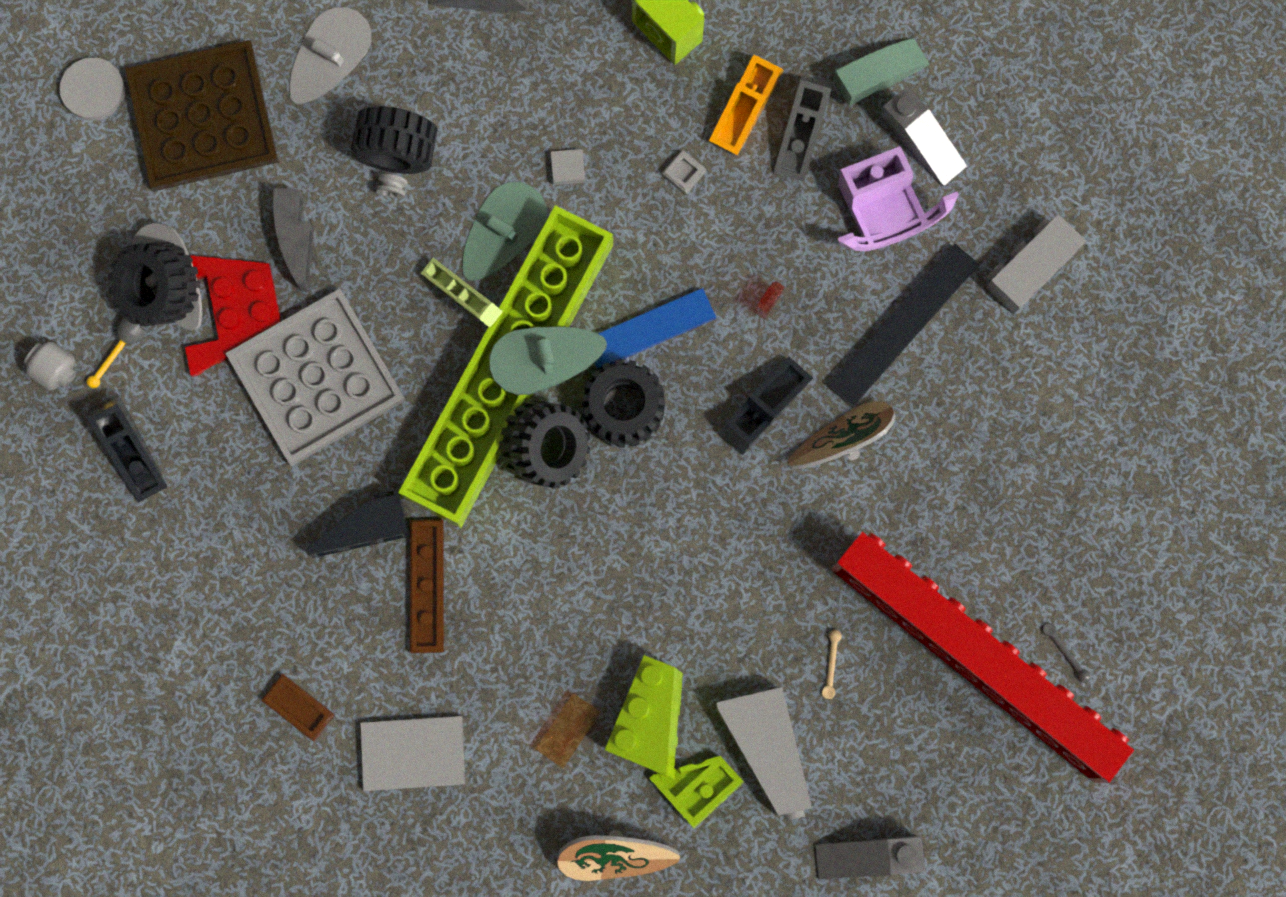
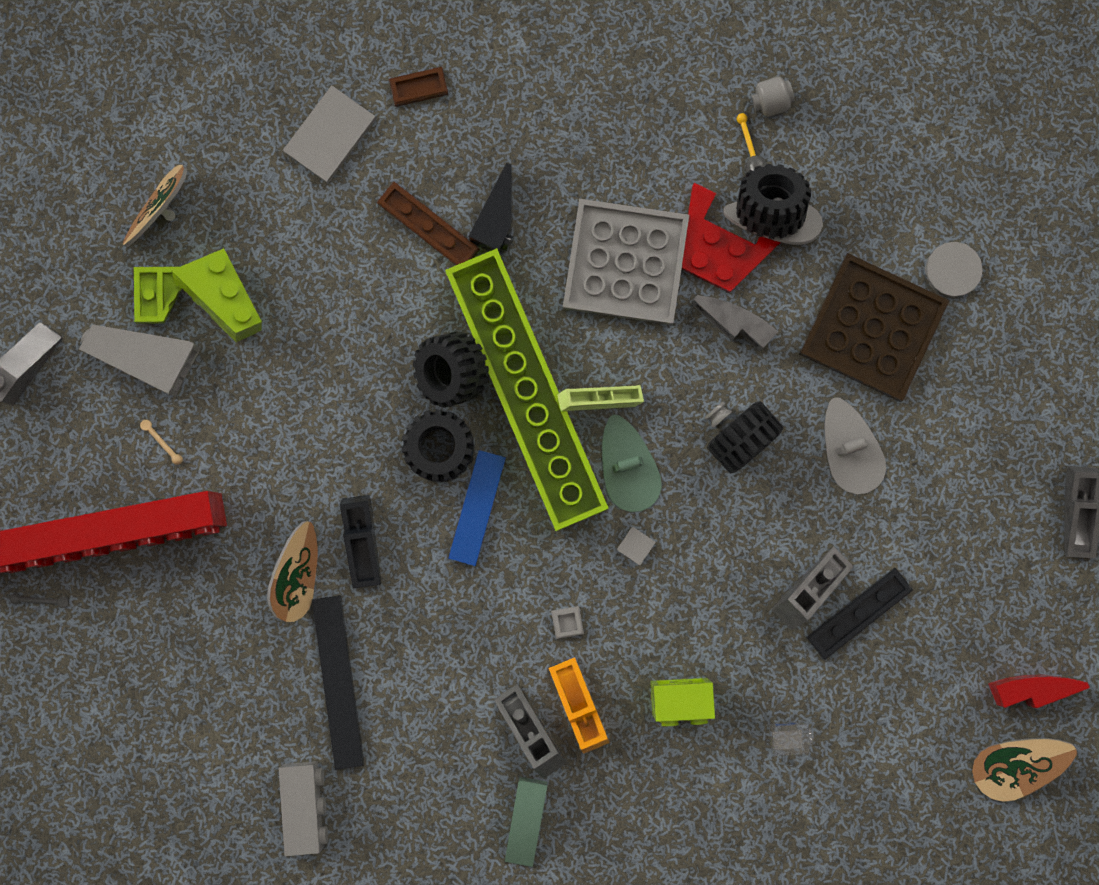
camera: 140 degrees right, 5 degrees up
(126, 447) = (679, 104): black slope -> none
(543, 357) = (508, 414): sand green shield -> none
(568, 730) = (262, 241): clear orange tile -> none
(769, 299) = (428, 603): clear red tile -> none
(885, 202) = (427, 740): lavender piece -> none
(922, 135) = (454, 809): slope -> none

